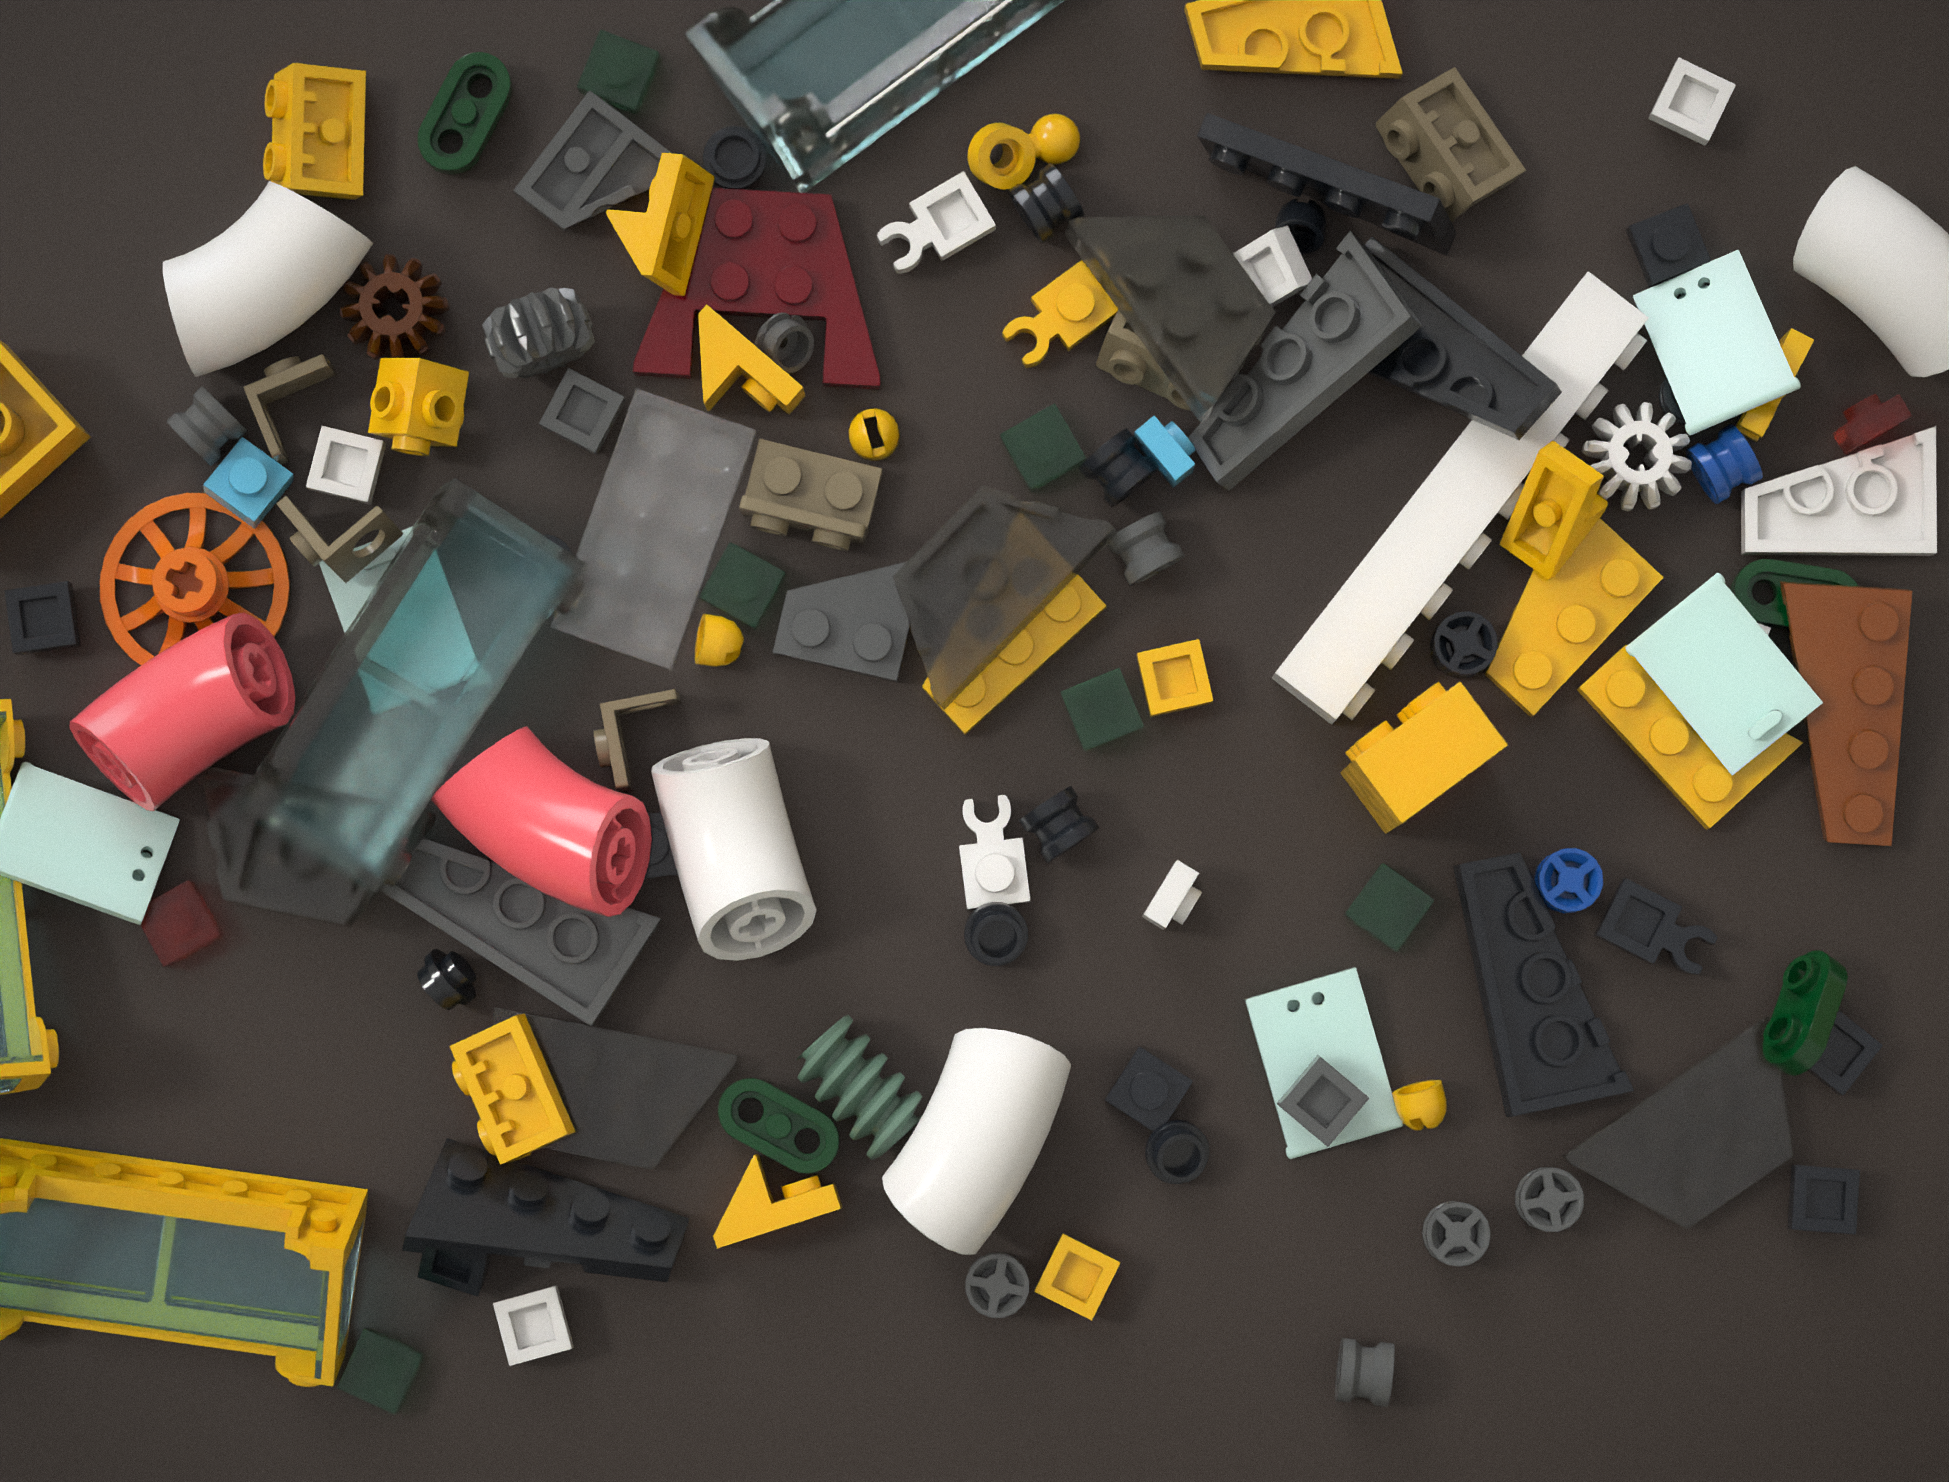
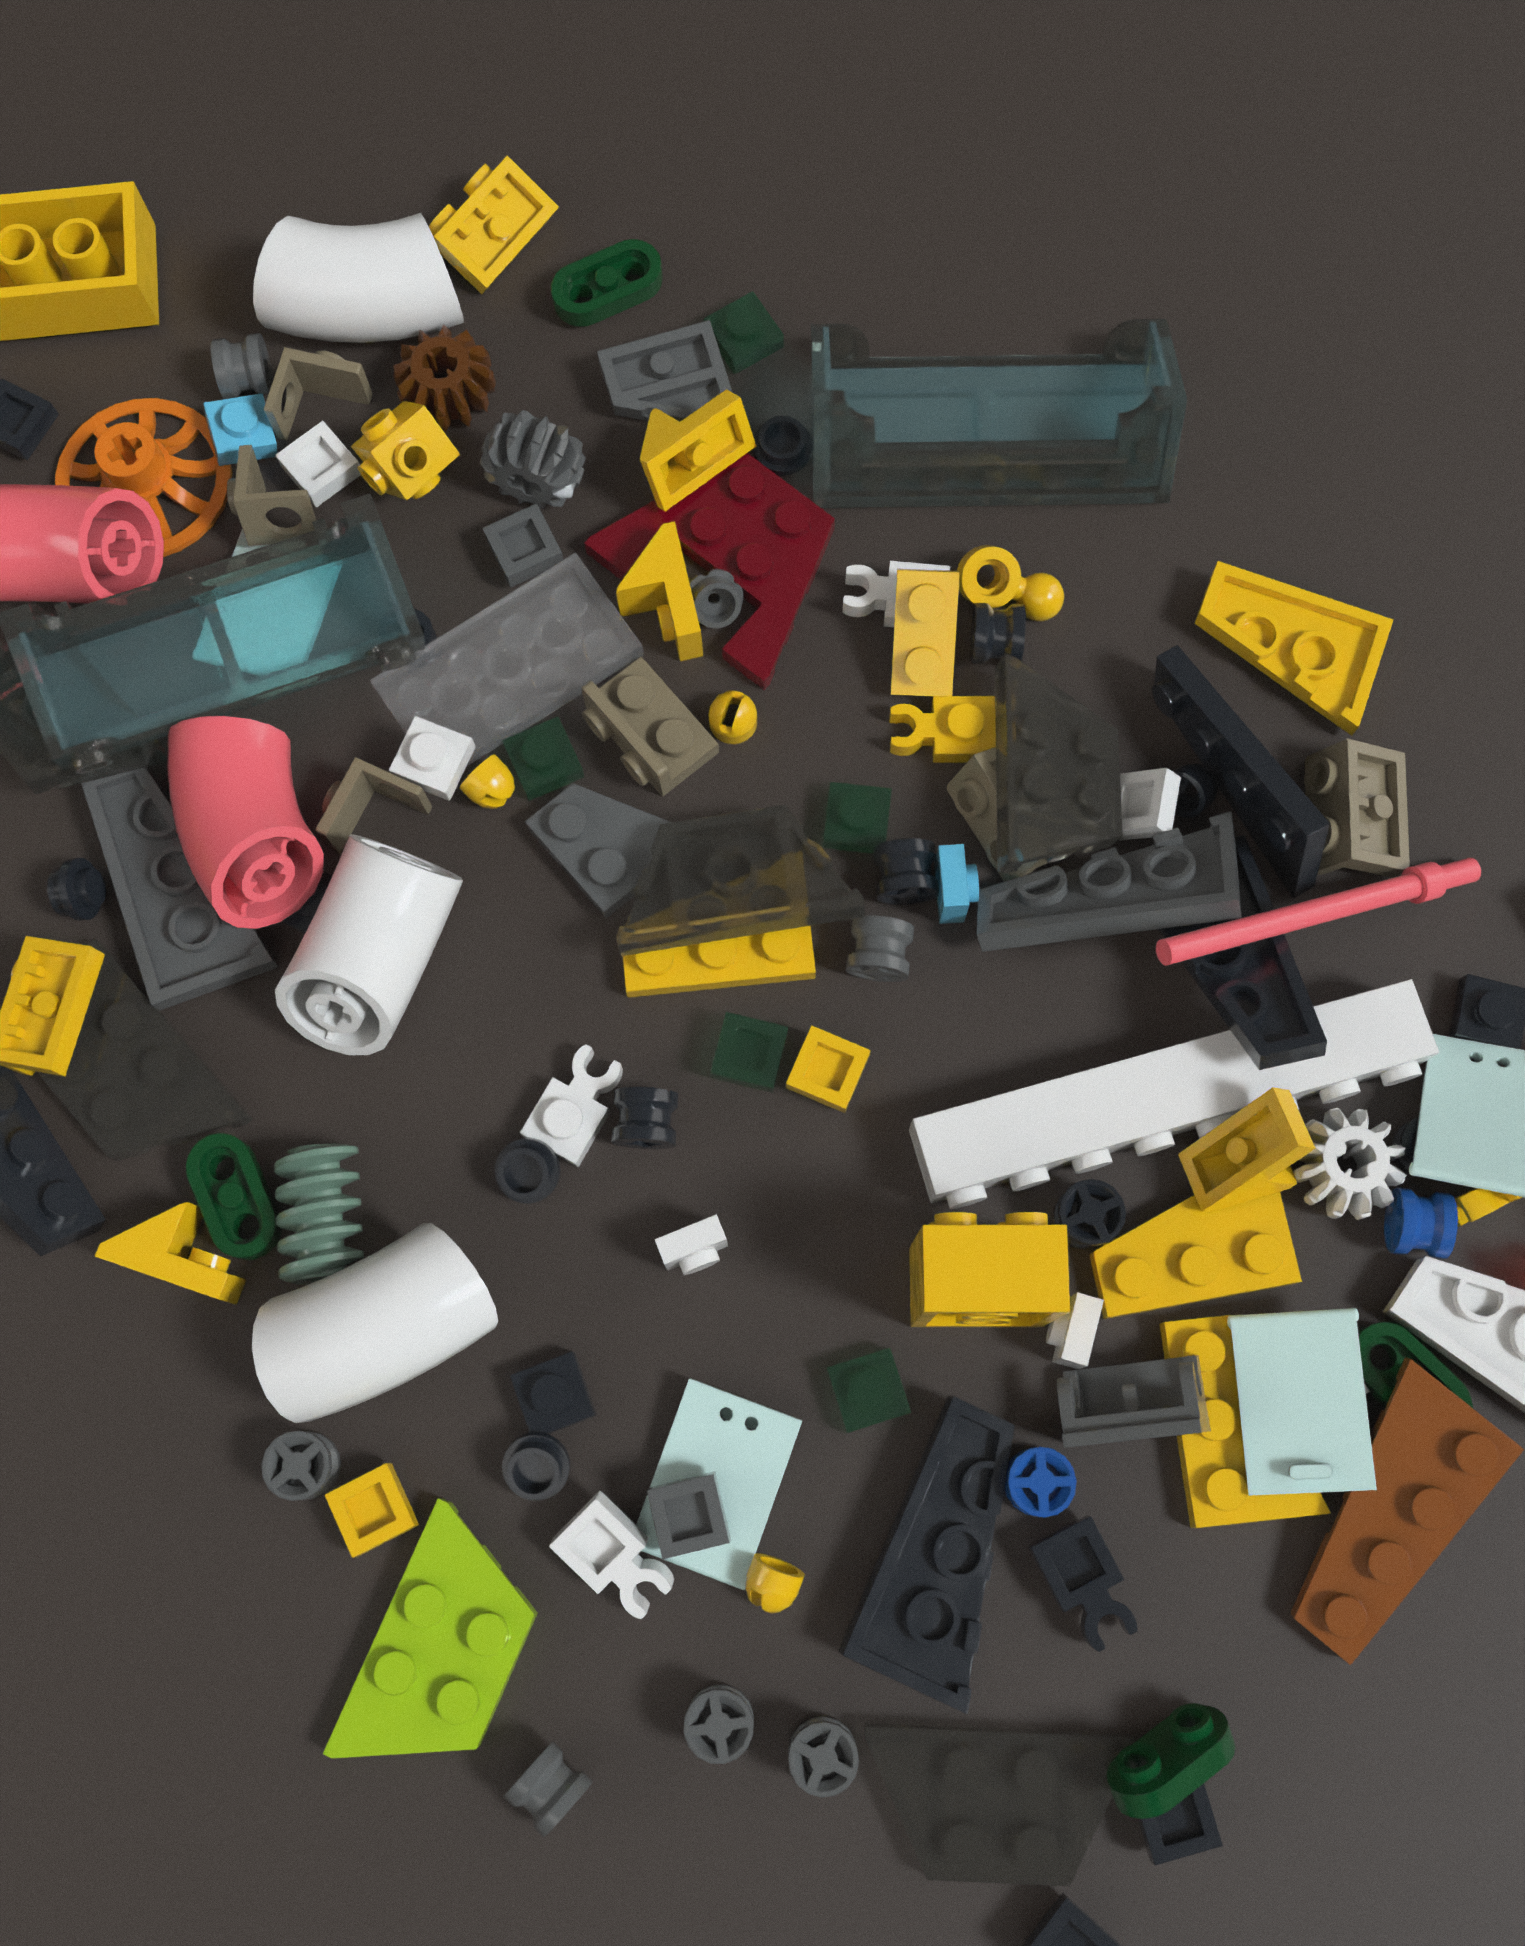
camera: 35 degrees right, 10 degrees down
(660, 657) = (433, 757): none -> white plate
(986, 248) = (924, 632): none -> yellow plate
(1205, 1338) = (438, 1650): none -> lime wing
(1276, 1171) = (605, 1548): none -> white plate
(1522, 752) = (1075, 1331): none -> white plate
(1539, 179) = (1416, 884): none -> coral bar
(1597, 768) = (1132, 1402): none -> dark grey hinge

